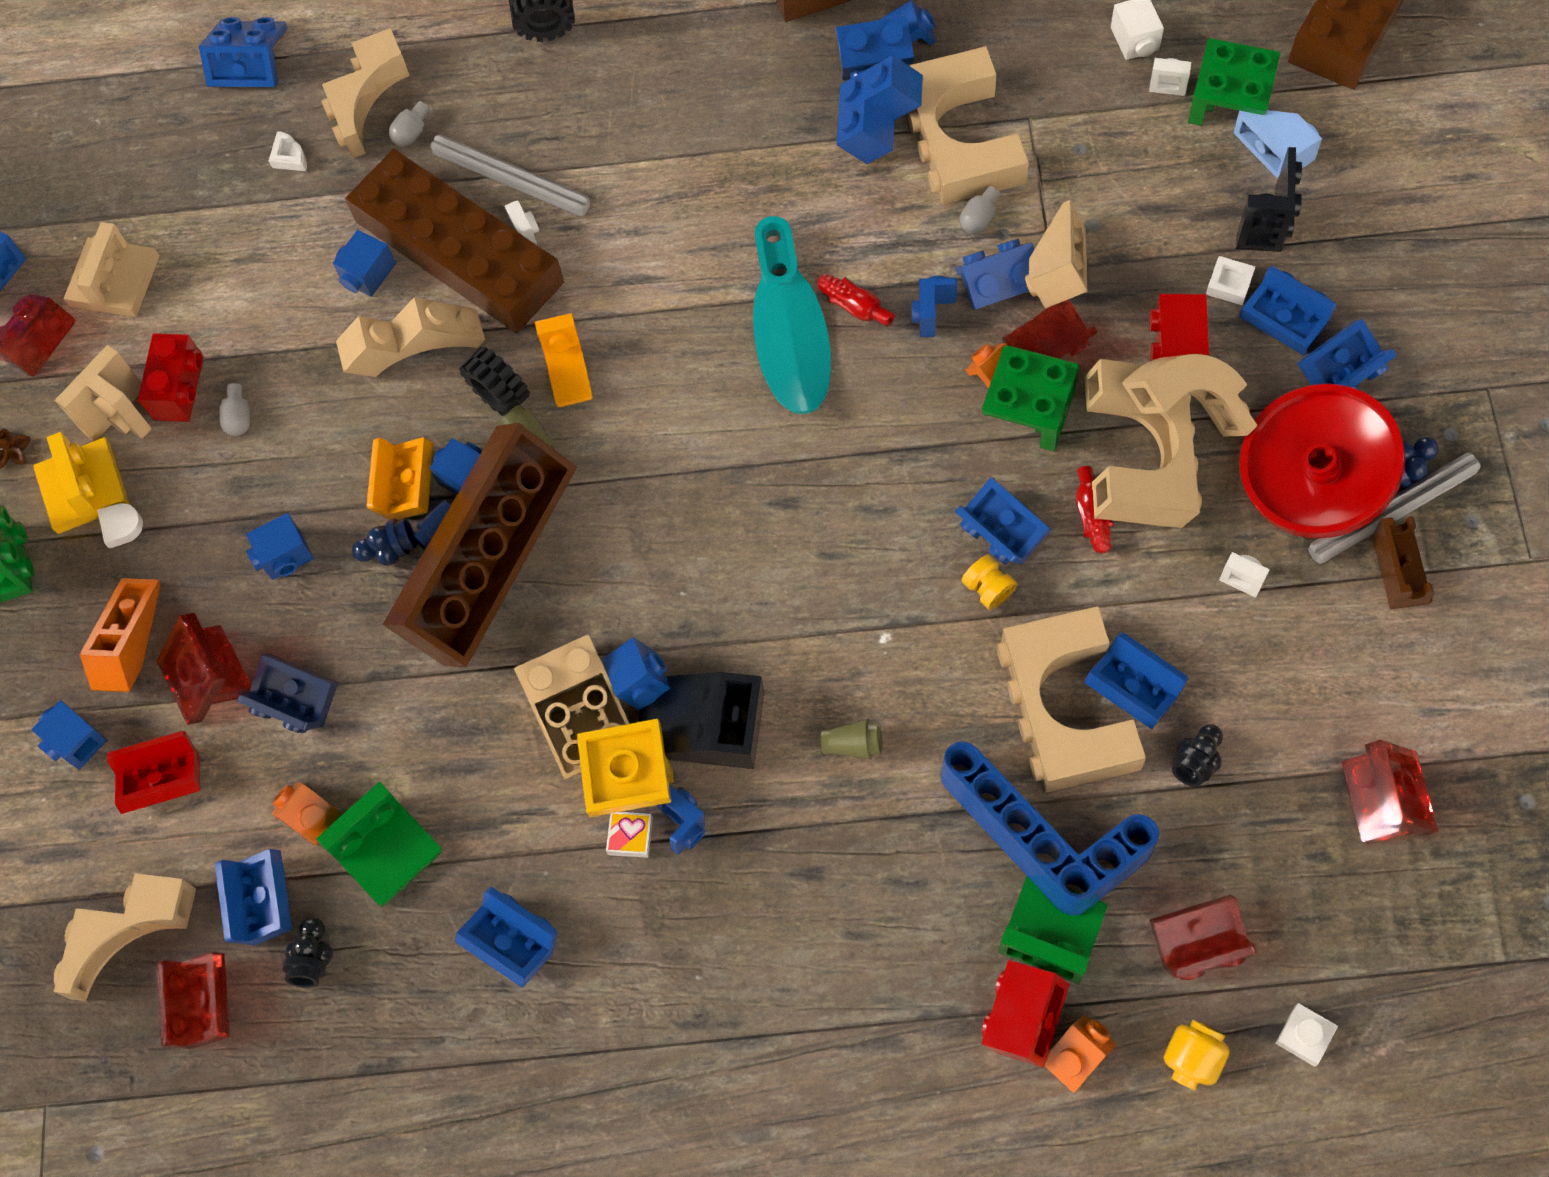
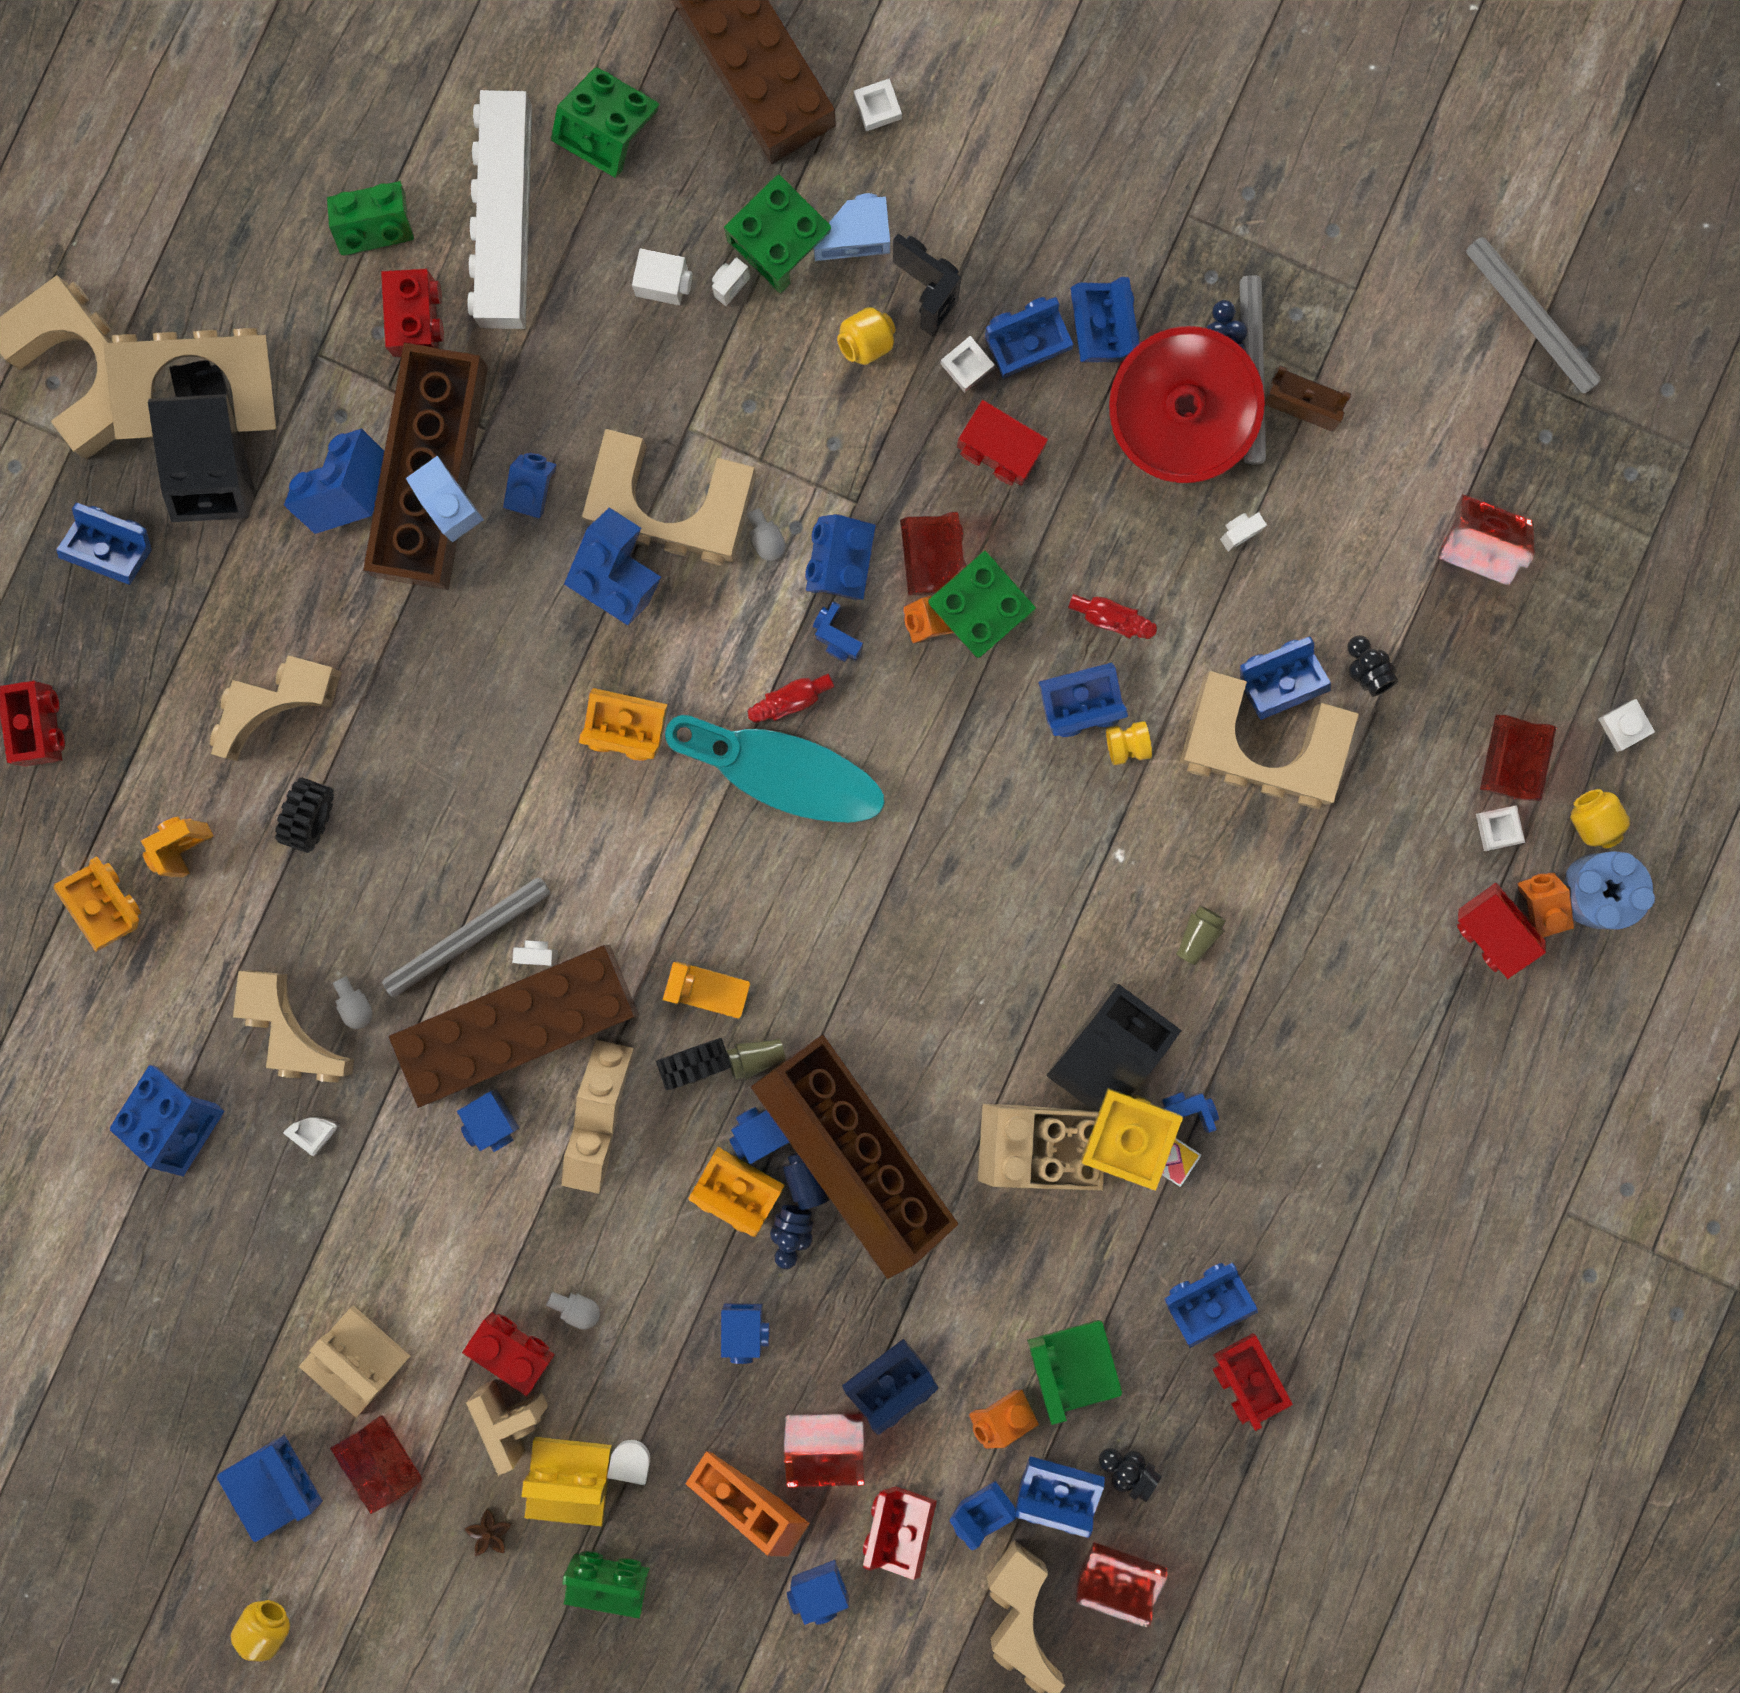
camera: 65 degrees left, 20 degrees up
(202, 836) = (982, 1515): none -> blue bracket
(450, 1018) = (1252, 1380): none -> red bracket
(636, 673) = (1048, 1083): blue brick -> none
(753, 188) = (623, 724): none -> light orange bracket
(871, 42) = (540, 529): blue bracket -> none
(1041, 836) = (1369, 836): blue beam -> none
(1049, 938) = (1444, 869): green bracket -> none
(1059, 259) = (868, 500): tan slope -> none
(1126, 967) = (1500, 828): none -> white tile
(1145, 496) = (1133, 540): tan arch -> none
(1155, 1094) = (1628, 896): none -> medium blue brick
(1198, 192) = (866, 336): none -> yellow head
(1210, 380) = (1055, 476): tan arch -> none
(1394, 103) = (877, 105): none -> white plate

